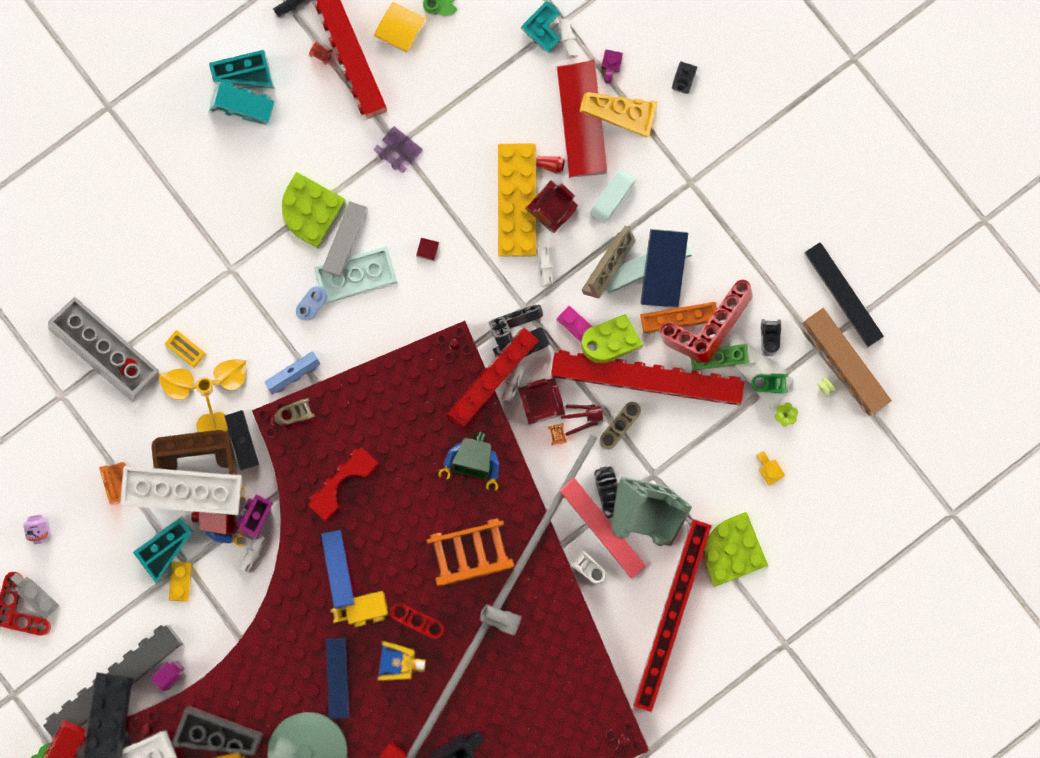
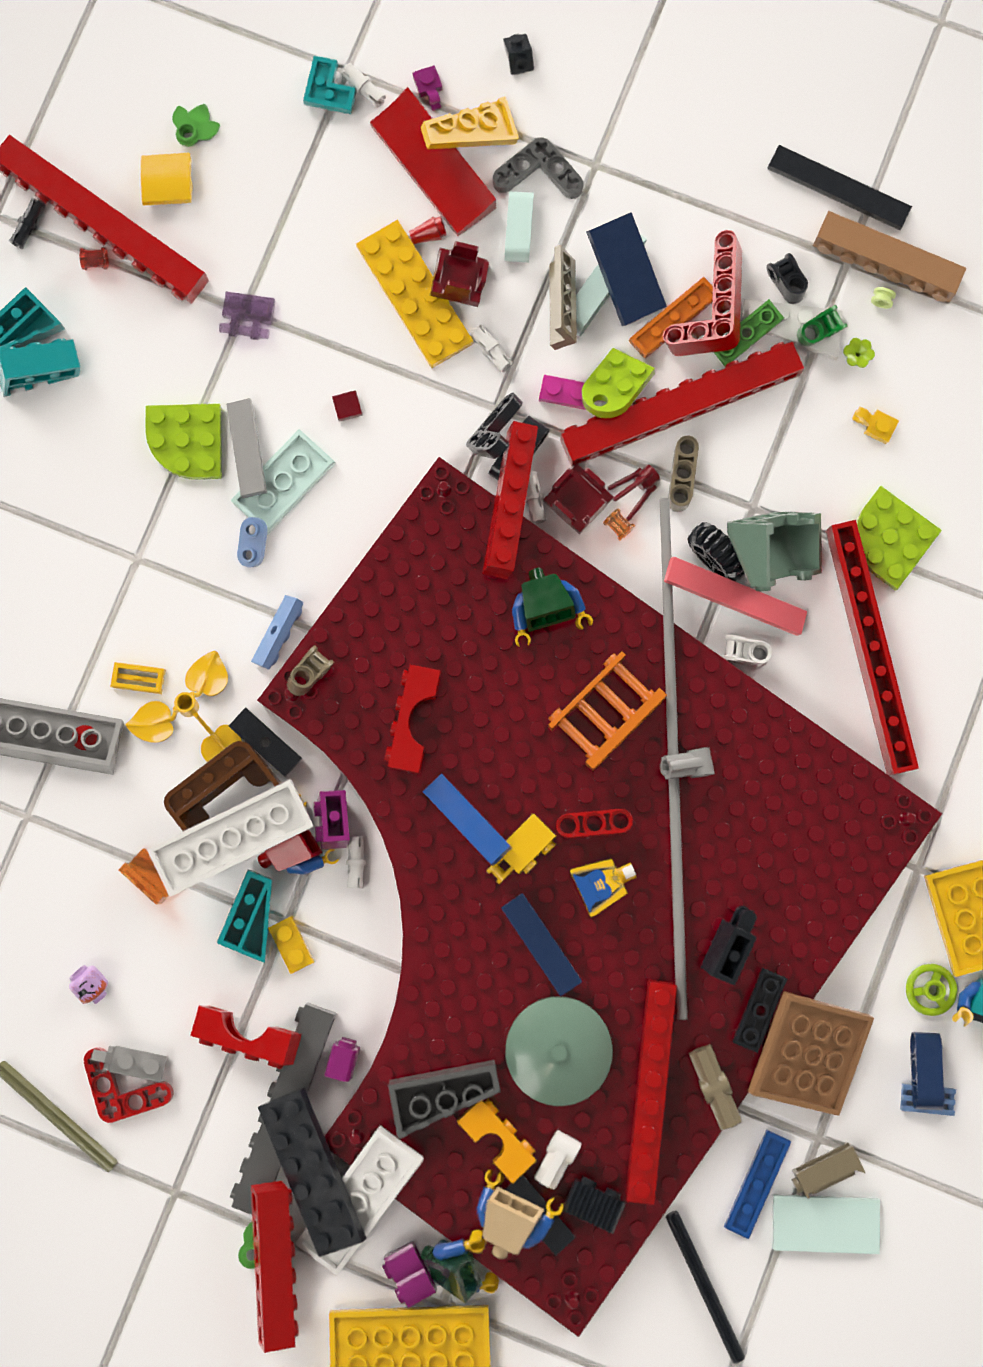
camera: 30 degrees left, 0 degrees up
(101, 606) = (217, 1027): none -> red arch
(651, 157) = (536, 161): none -> dark grey beam

